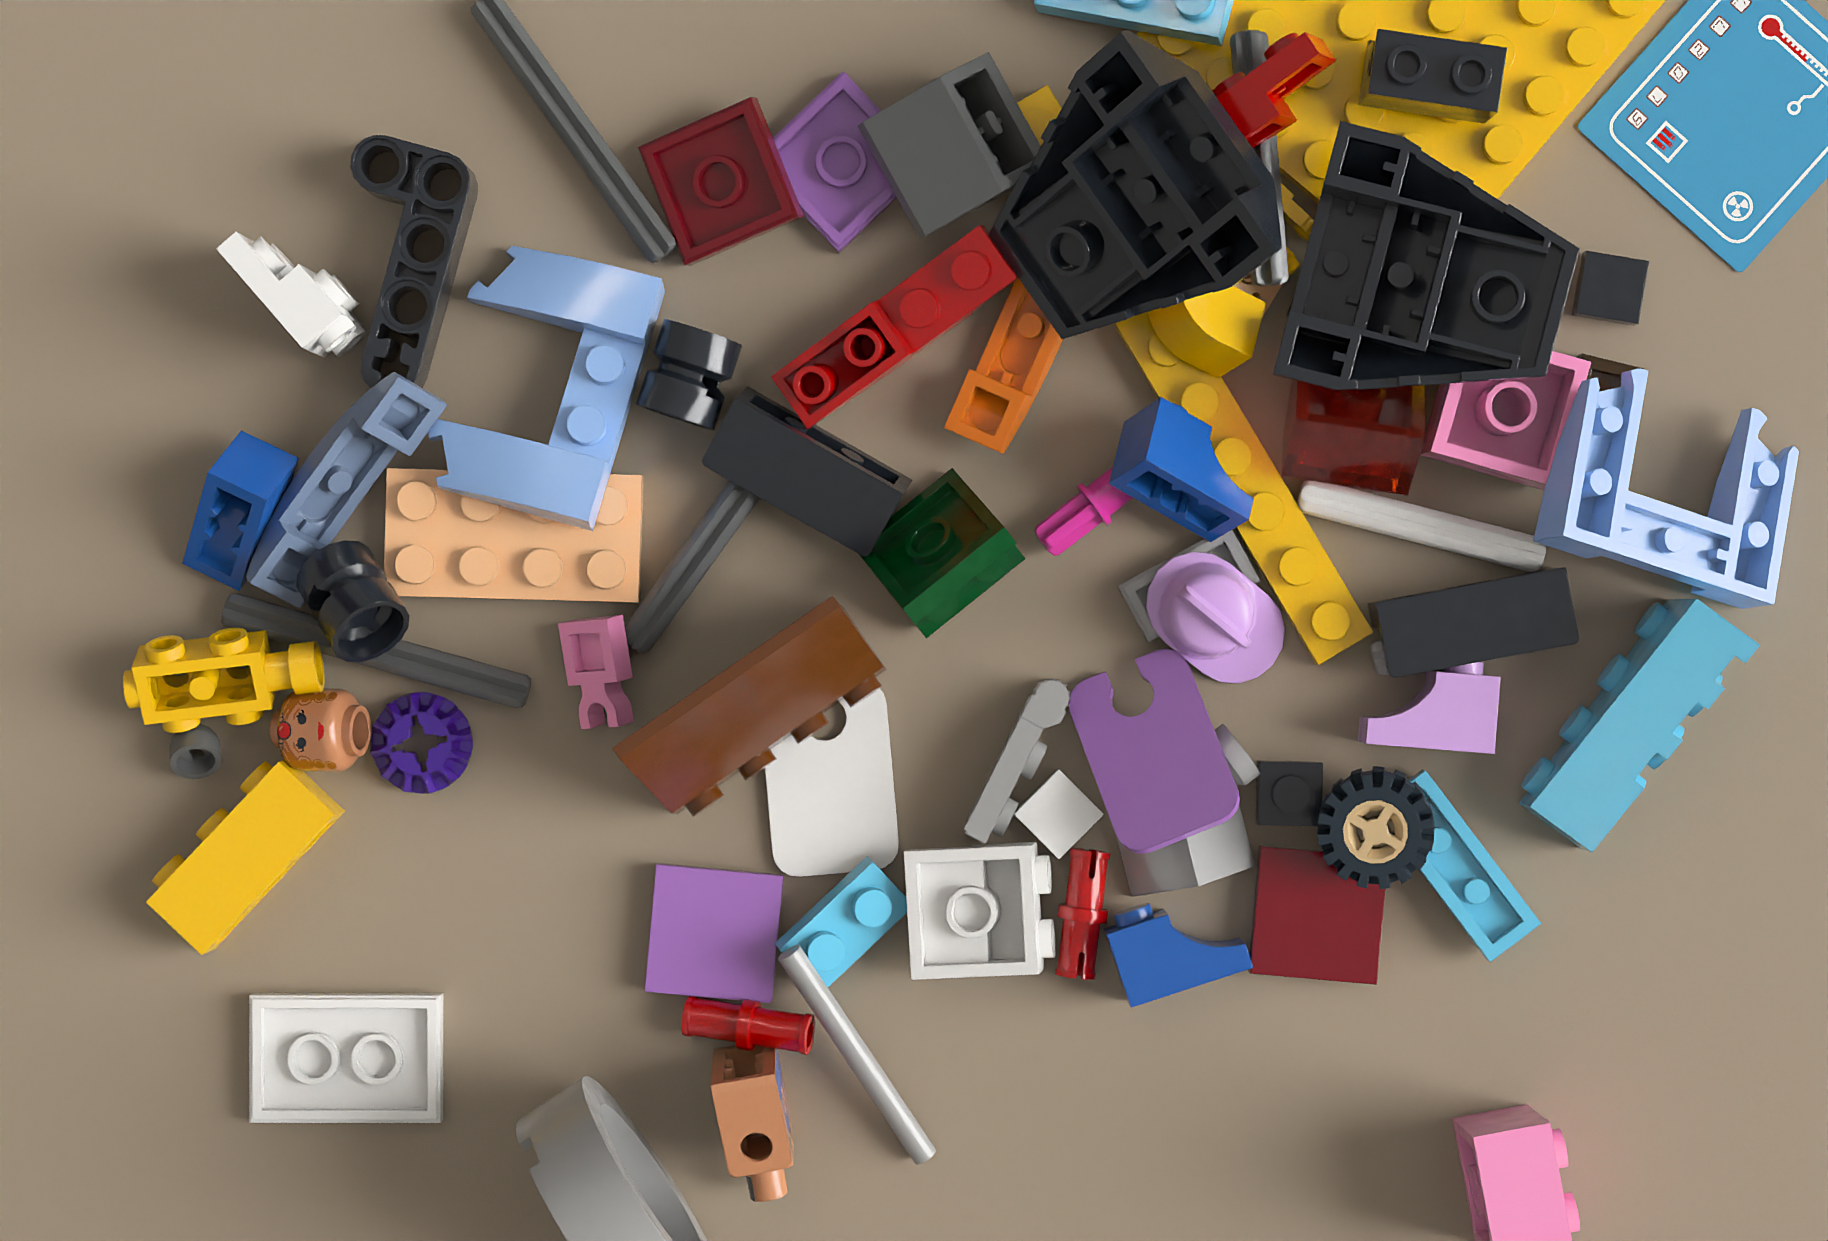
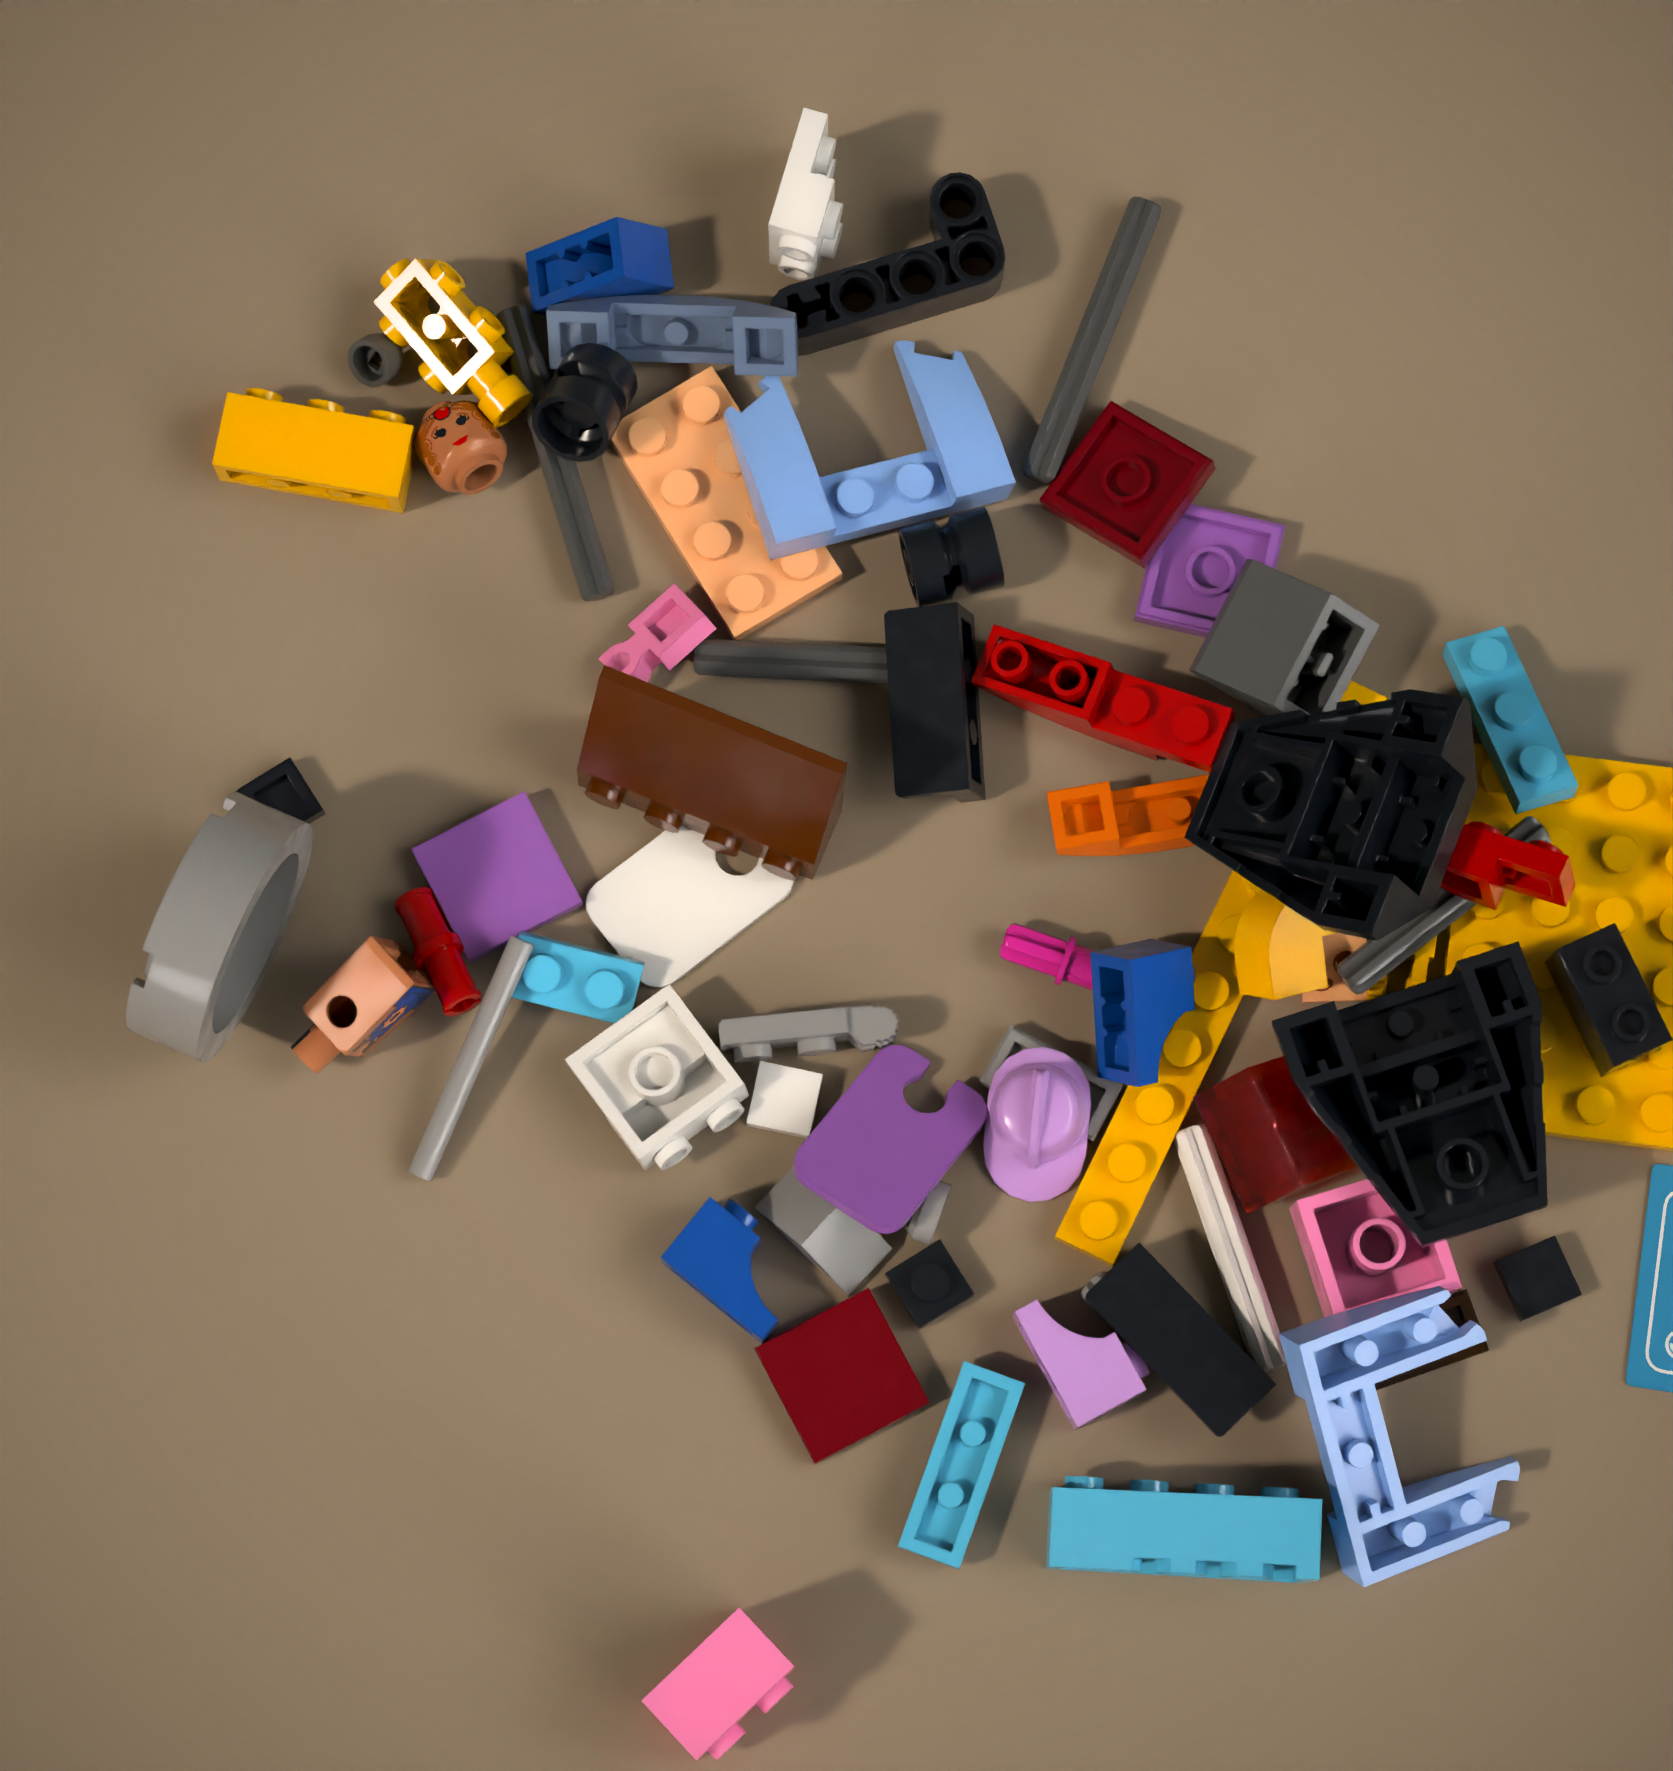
camera: 55 degrees right, 10 degrees down
(346, 1058) = (197, 642): white tile -> none
(437, 717) = (498, 565): dark purple gear -> none
(530, 1072) = (285, 791): none -> black tile
(942, 552) = (938, 860): dark green bracket -> none
(1082, 913) = (713, 1173): red pin -> none
(1365, 847) = (927, 1348): black wheel -> none

